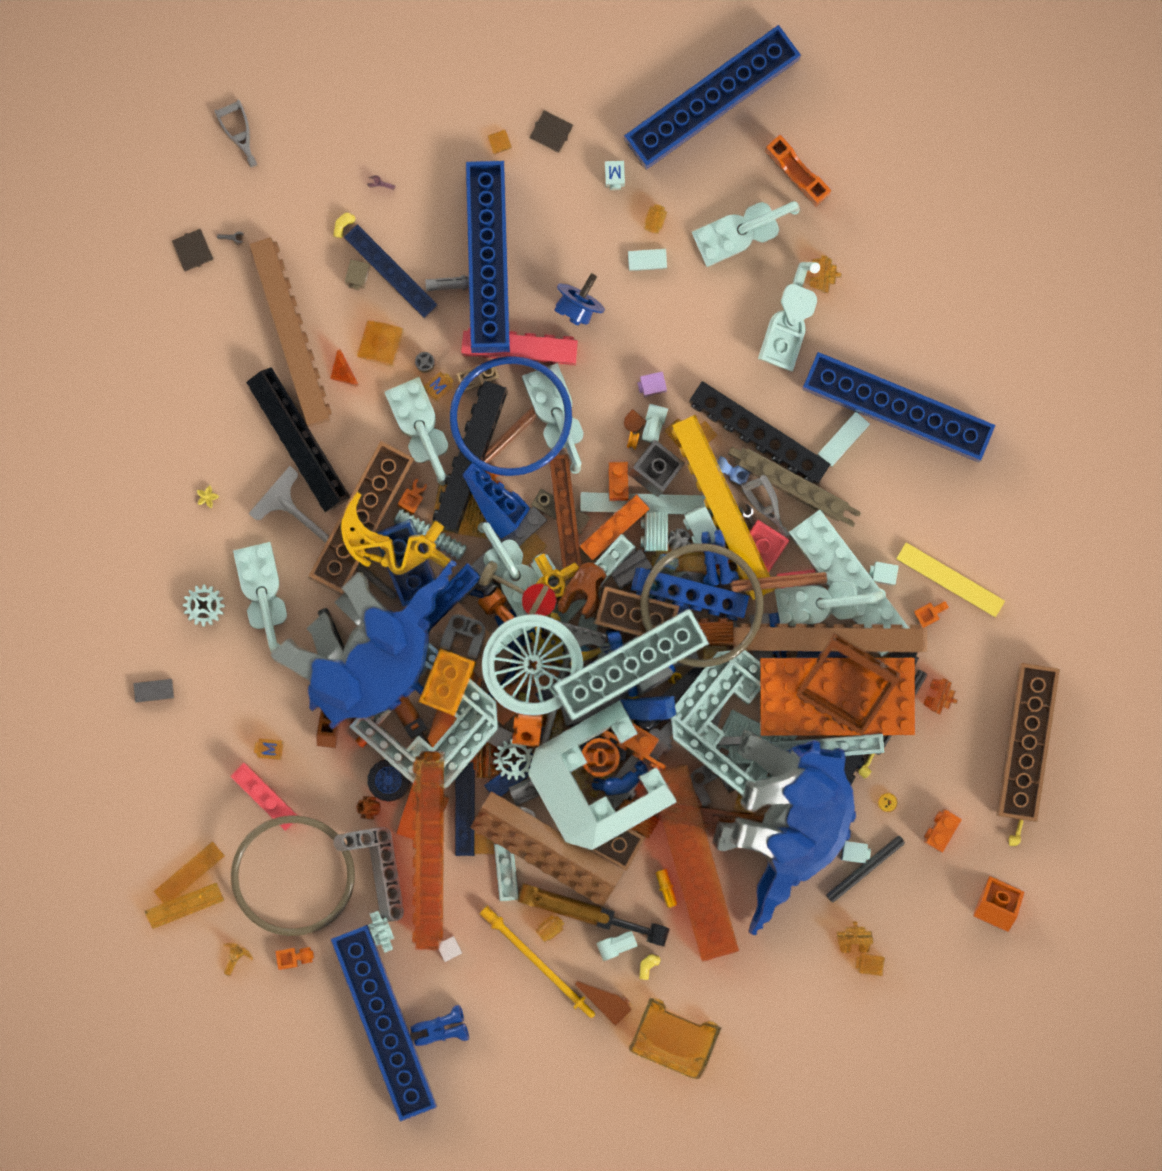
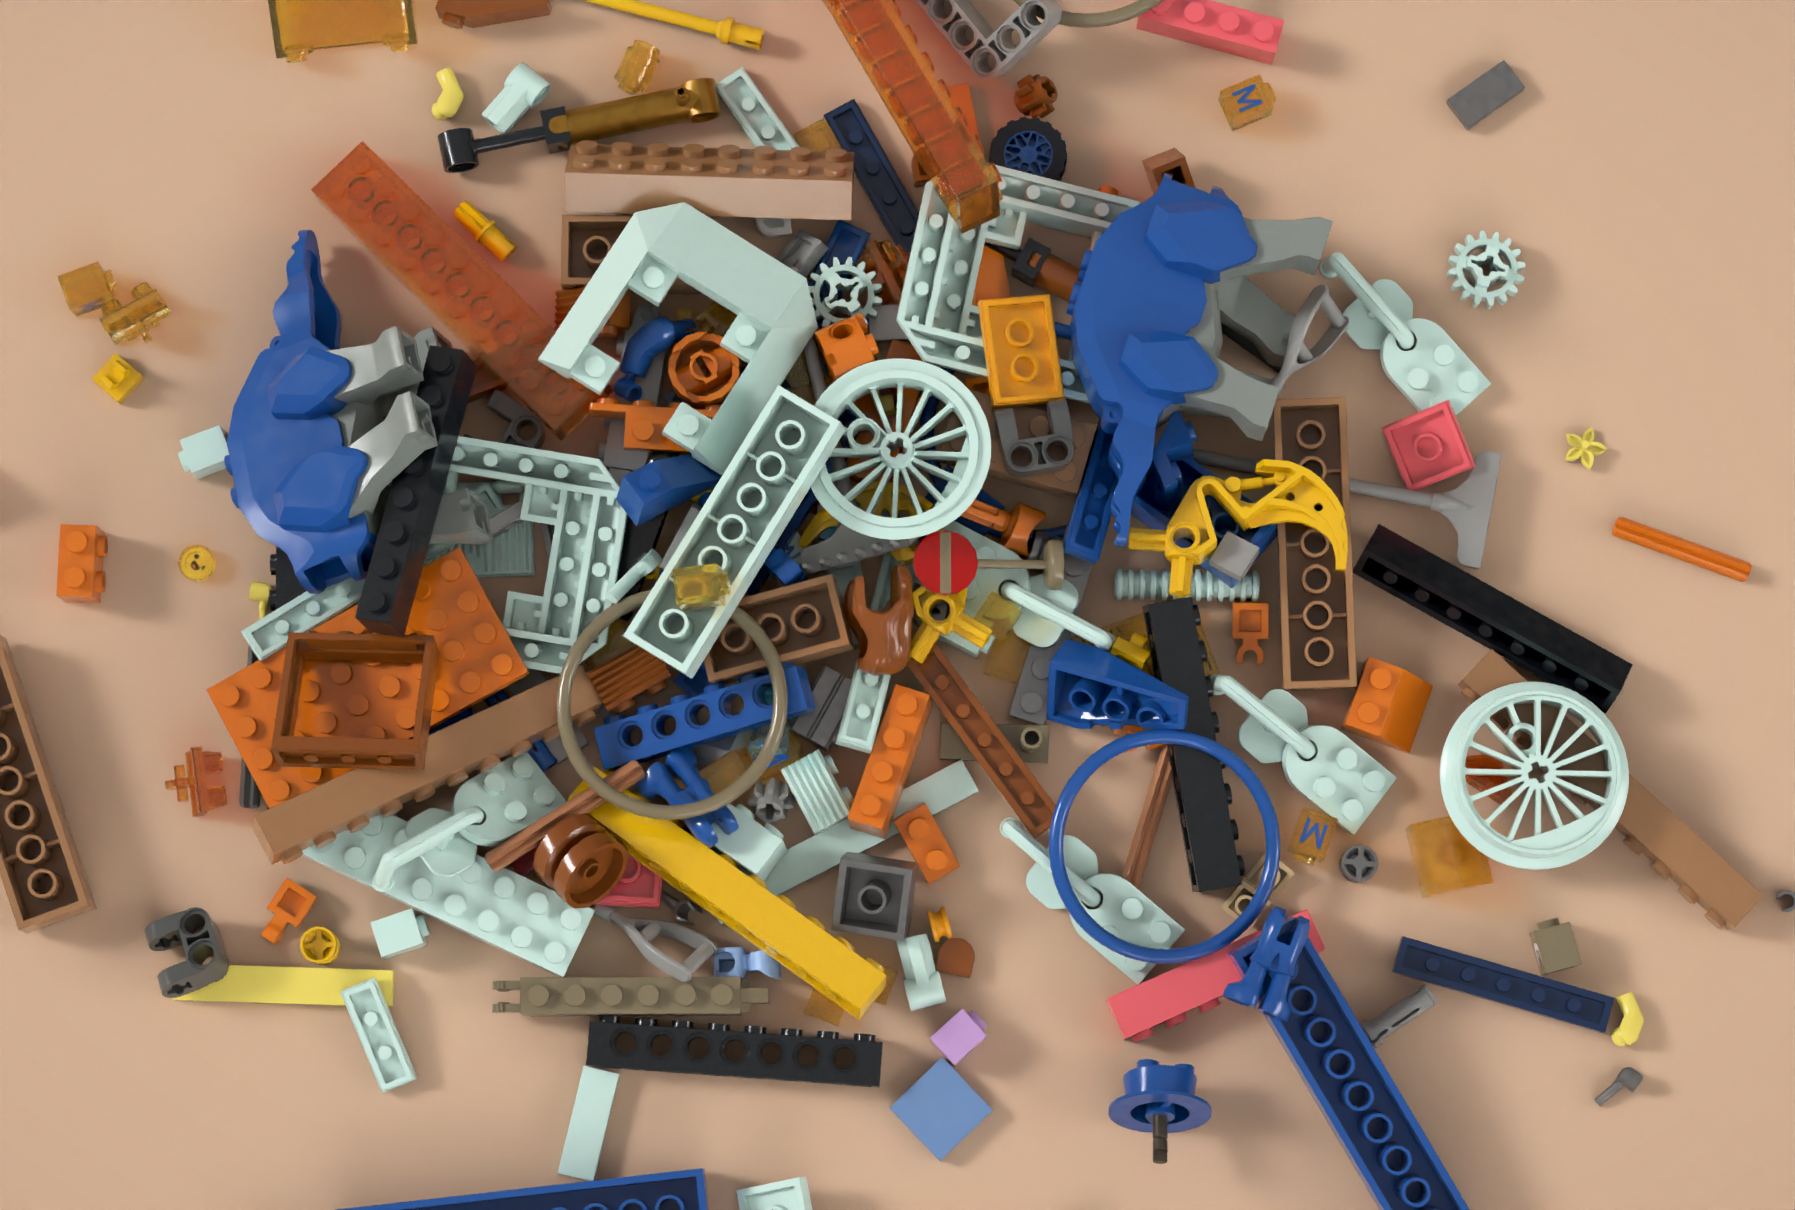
camera: 150 degrees right, 5 degrees down
(189, 423) = (1681, 549): none -> orange axle
(280, 536) = (1428, 446): none -> coral tile
(317, 611) = (1297, 348): none -> light grey piece
(324, 316) = (1565, 842): none -> light aqua piece
(358, 199) = (1627, 1077): none -> flat silver hand
(369, 427) = (1387, 705): none -> orange slope
(378, 182) = (1606, 1125): hand -> none
(400, 598) = (1173, 446): none -> blue slope
(403, 528) = (1234, 556): none -> light grey tile
(474, 514) = (1132, 651): none -> yellow tile
(491, 334) = (1271, 956): none -> blue piece
(527, 565) = (998, 615): none -> clear yellow tile
(661, 643) = (700, 586): none -> clear yellow brick
(678, 357) = (941, 1109): none -> medium blue tile
(680, 679) = (638, 568): none -> light aqua bar
(769, 764) = (416, 498): none -> black brick
(783, 556) = (580, 861): none -> dark orange wheel
(865, 869) = (179, 429): dark grey axle -> none
(879, 913) = (118, 378): none -> yellow tile
(918, 532) = (378, 1034): none -> light aqua tile
(927, 588) = (314, 944): none -> yellow wheel
(986, 631) = (180, 930): none -> dark grey piece

